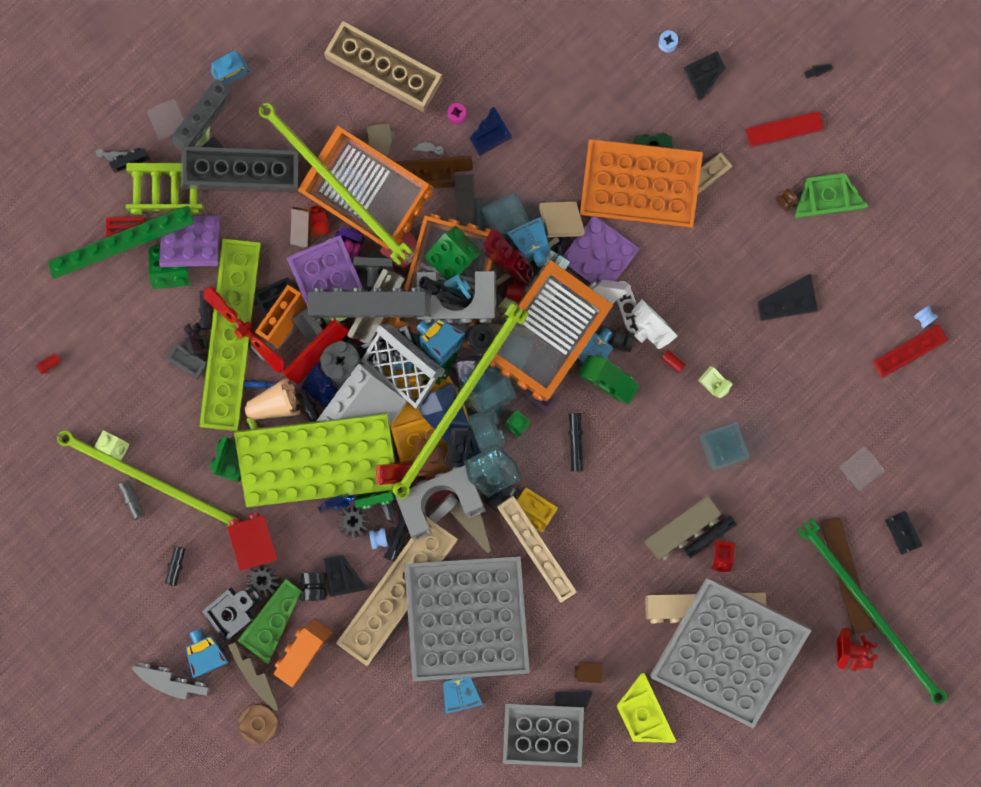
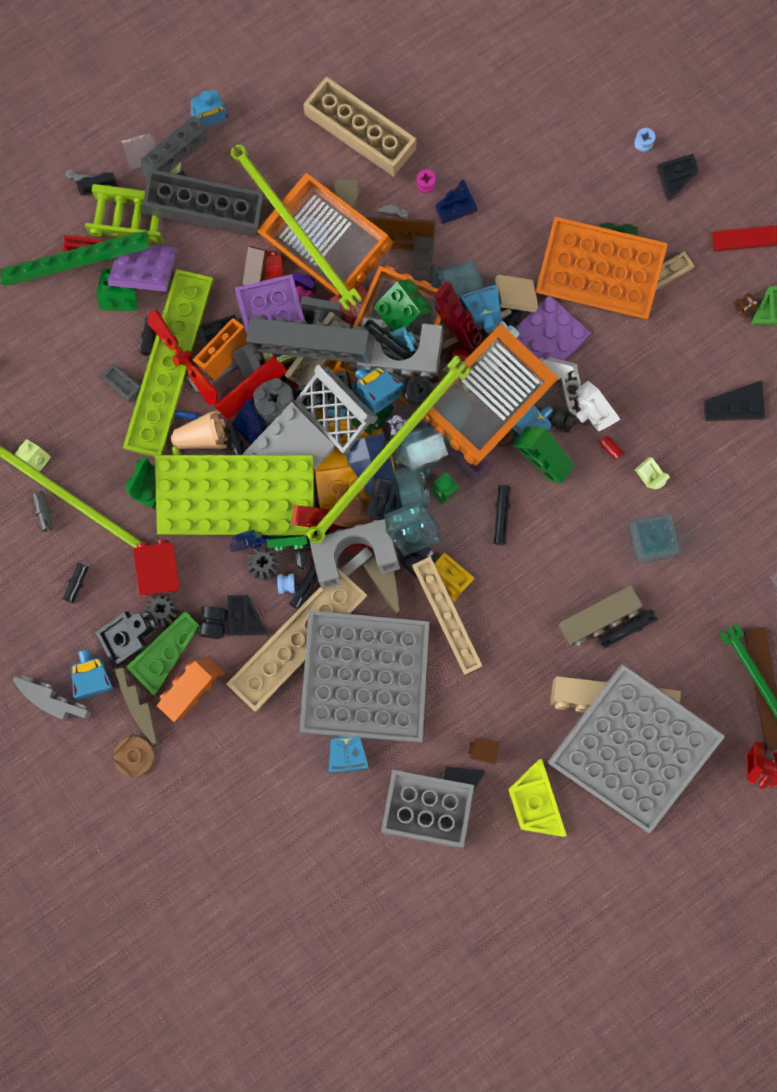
camera: 10 degrees right, 5 degrees down
(195, 342) = (132, 365): black plate -> none
(723, 556) = (639, 650): red bracket -> none

